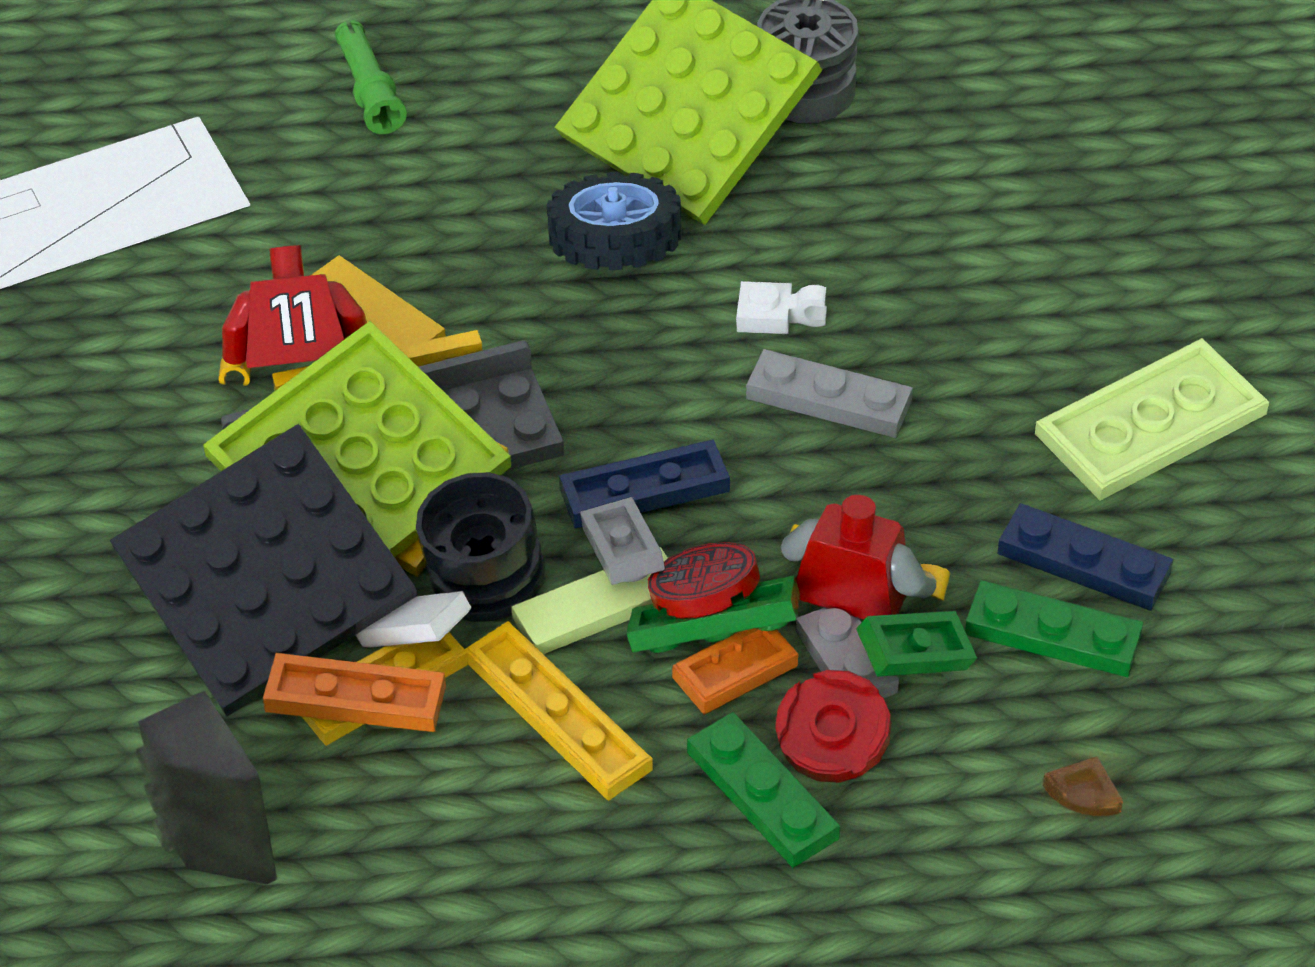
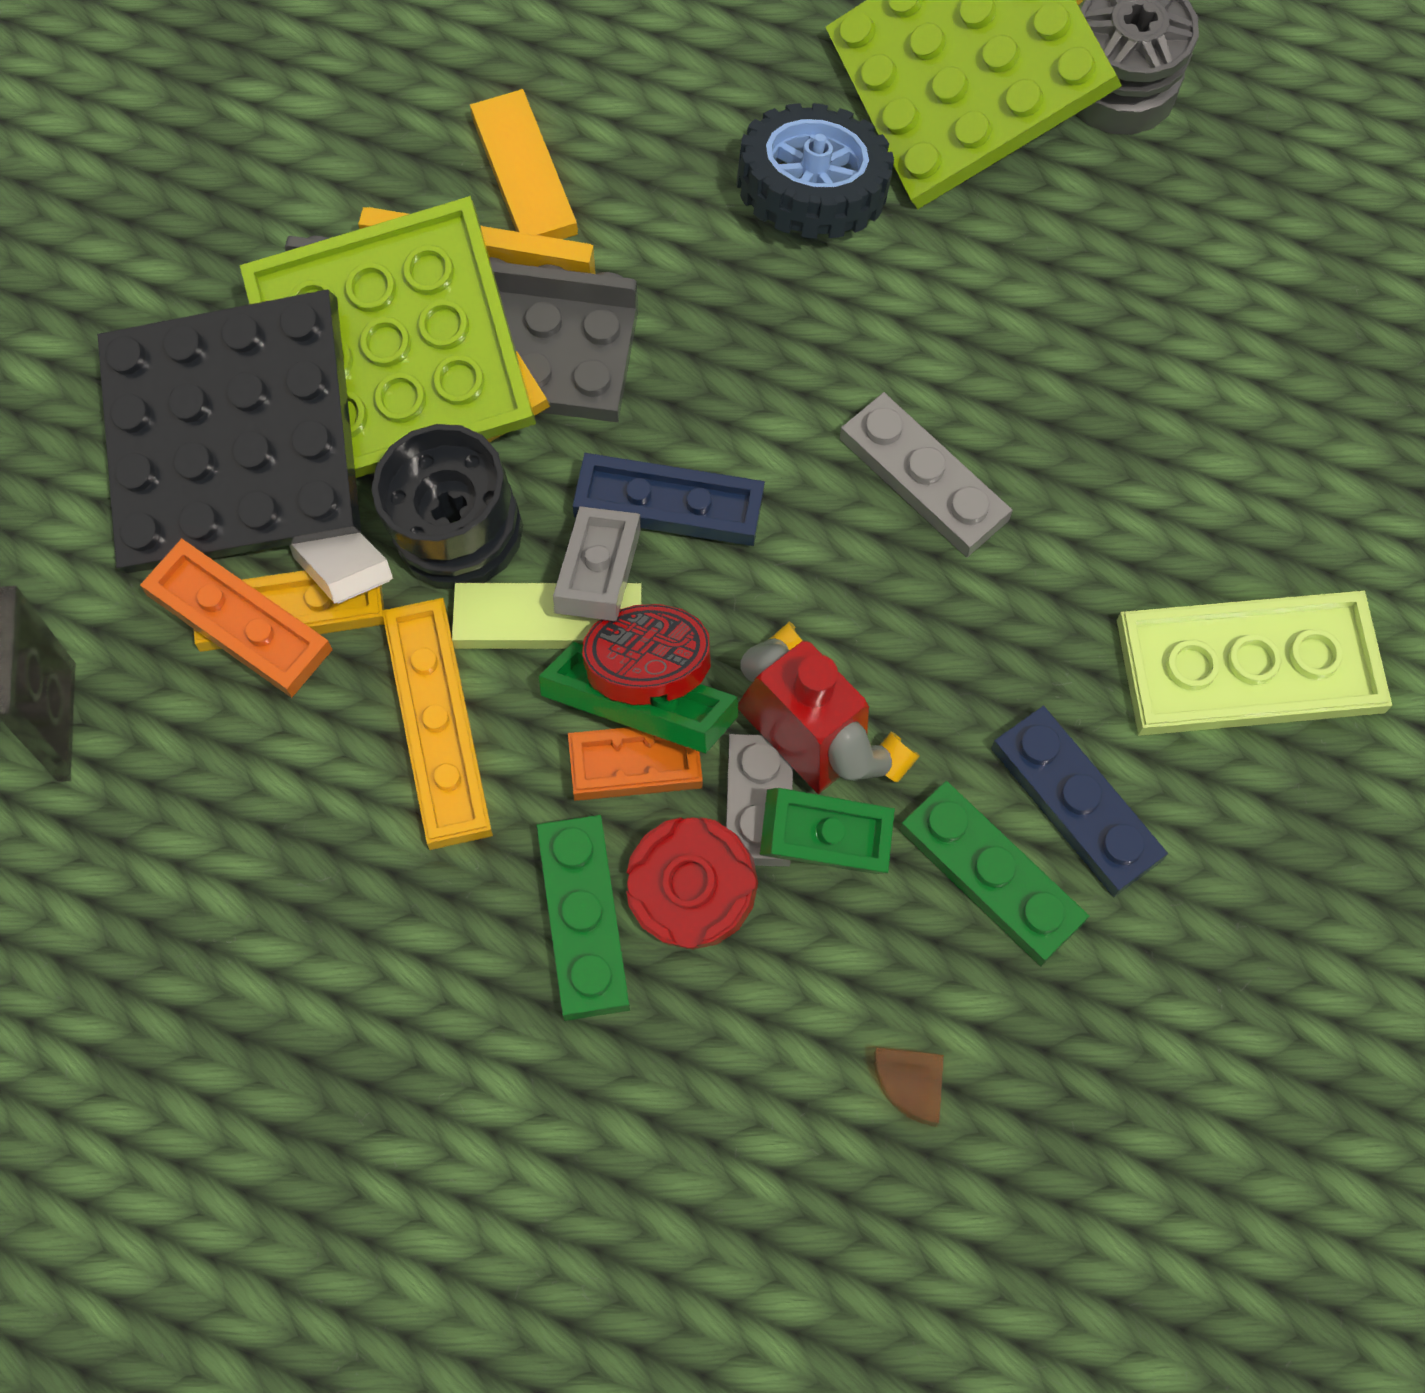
camera: 25 degrees right, 20 degrees up
(286, 318) = (407, 154): red torso -> none
(772, 306) = (927, 341): white plate -> none

